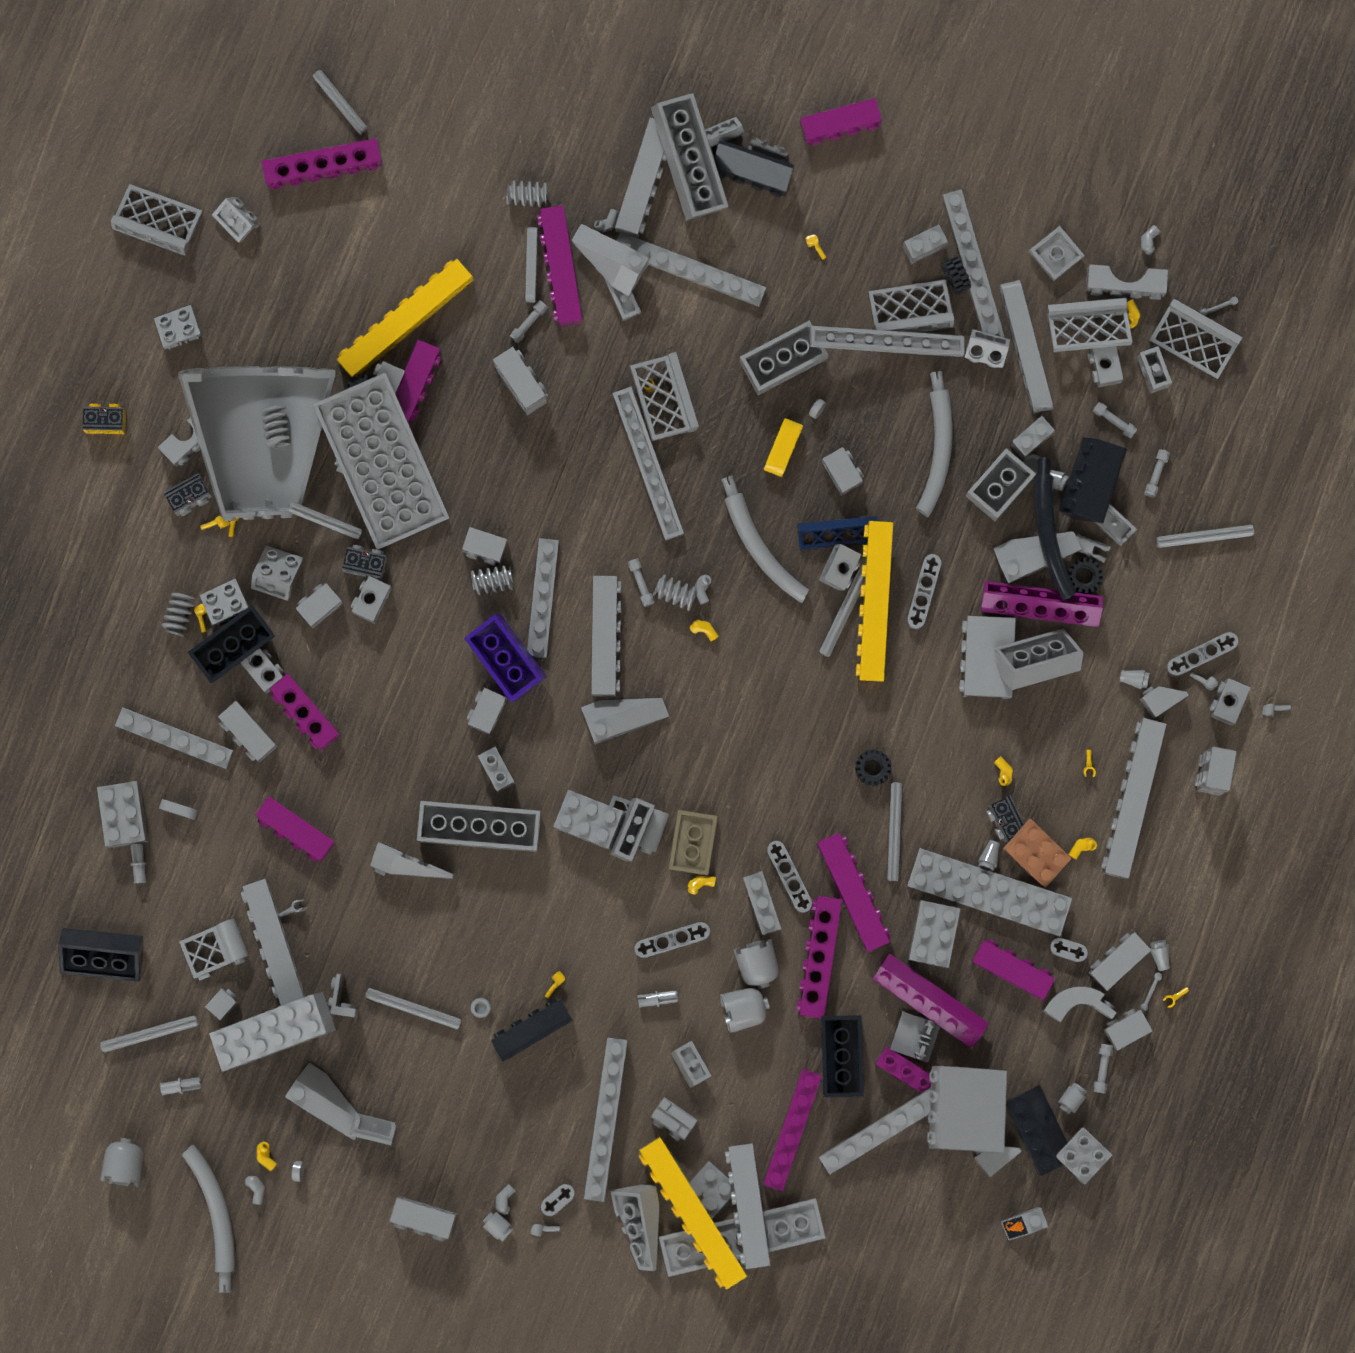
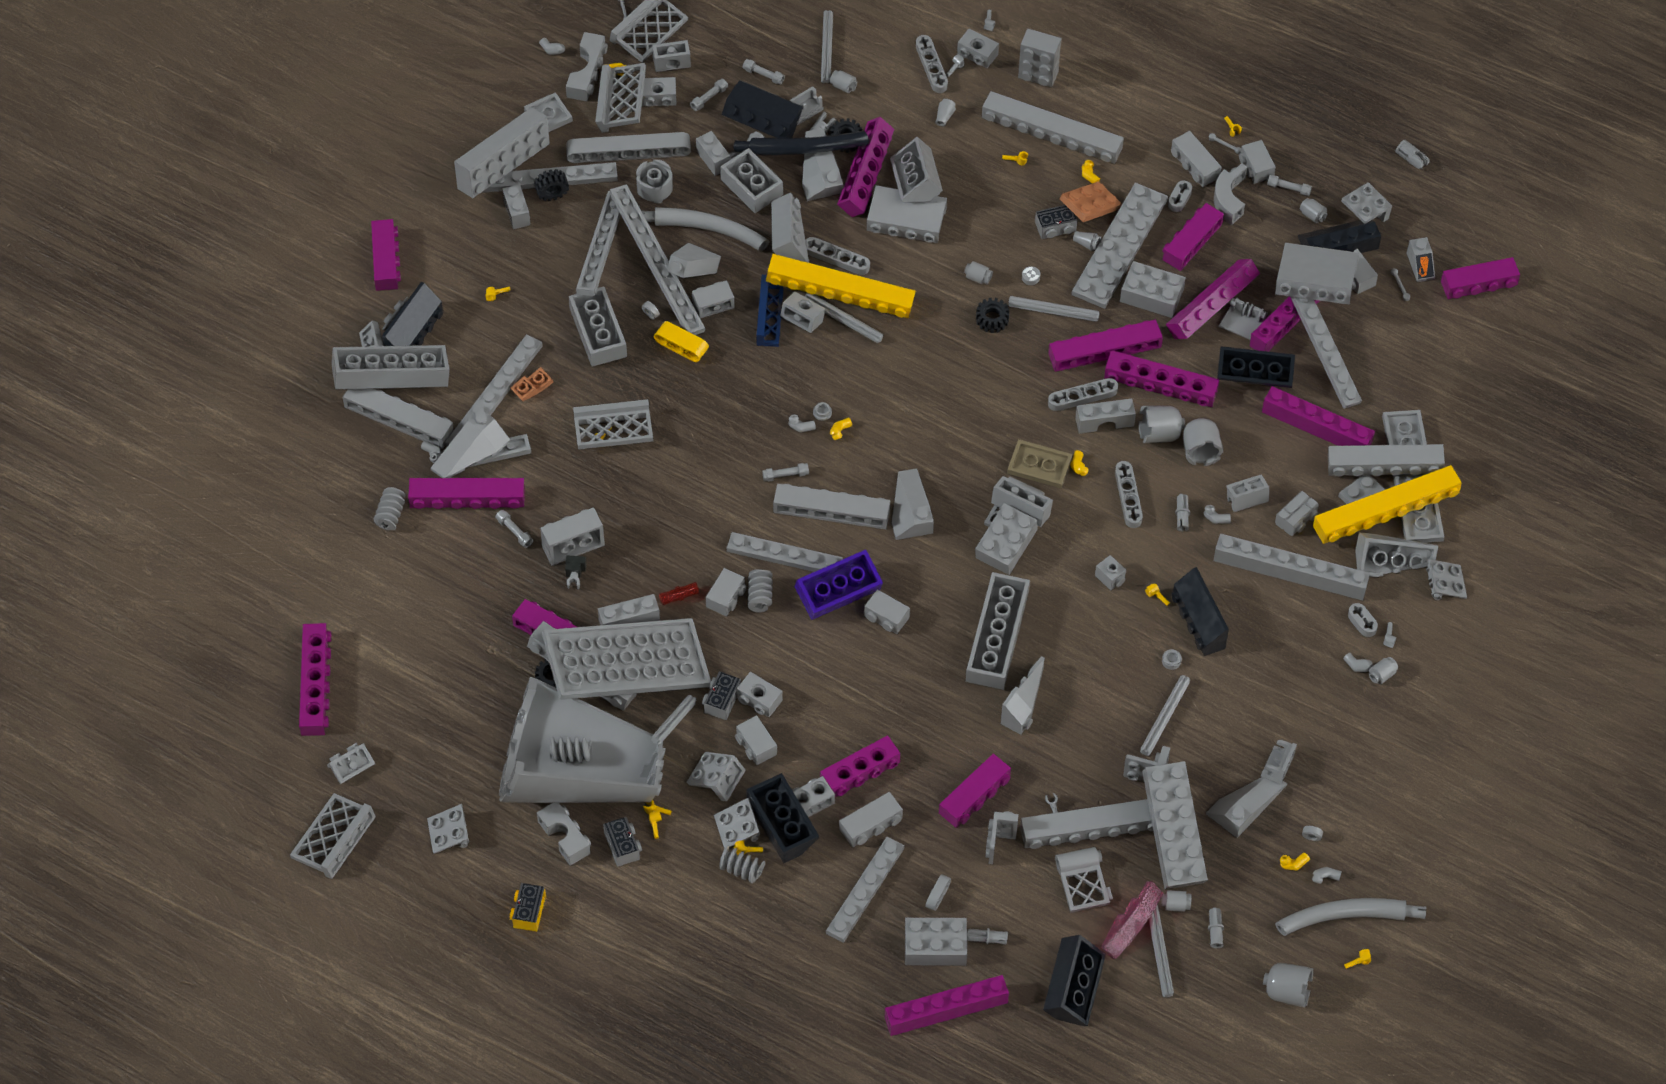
camera: 80 degrees left, 25 degrees down
(56, 834) = (946, 1005): none -> magenta brick
(166, 999) = (1132, 921): none -> clear pink slope
(169, 1236) = (1365, 958): none -> yellow hand
(202, 1044) = (1176, 901): none -> light grey brick
(222, 1003) = (1137, 875): light grey brick -> none
(255, 865) = (1002, 826): none -> light grey bracket
(340, 102) = (255, 658): light grey axle -> none
(405, 318) = (487, 628): yellow brick -> none
(423, 1218) = (1370, 726): light grey brick -> none
(441, 454) = (632, 611): none -> light grey brick
(483, 511) = (679, 593): none -> clear red pin
(490, 390) = (573, 569): none -> pearl dark grey piece
(496, 769) = (944, 611): light grey brick -> none
(531, 264) = (459, 517): light grey beam -> none
(569, 933) = (1110, 572): none -> light grey brick
(619, 1284) = (1445, 579): none -> light grey hinge
(648, 463) = (673, 450): light grey plate -> none
(658, 1033) = (1214, 517): none -> light grey arm
(675, 592) = (800, 443): light grey piece -> none
(705, 305) = (531, 386): none -> nougat slope
(721, 608) = (822, 411): none -> light grey plate
(754, 544) = (769, 375): light grey animal -> none
(878, 403) = (656, 260): none -> light grey plate
(880, 440) = (693, 261): none -> light grey slope
(917, 324) = (588, 226): light grey fence -> none
(924, 745) = (978, 273): none -> light grey brick
(934, 801) = (1030, 275): none -> light grey tile
(937, 535) = (787, 228): none -> light grey wedge
(982, 215) = (502, 152): none -> light grey brick
(988, 344) = (622, 171): light grey brick -> none
(993, 382) = (654, 181): none -> light grey brick
(1006, 771) = (1012, 218): yellow arm -> none
(1007, 1195) = (1406, 297): none -> light grey hinge
(1012, 1291) = (1480, 278): none -> magenta brick
(1157, 561) = (843, 81): none -> light grey brick
(1160, 953) = (1196, 128): light grey cone -> none
(1161, 699) = (968, 96): light grey slope -> none
(1171, 1198) = (1412, 154): none -> light grey hinge

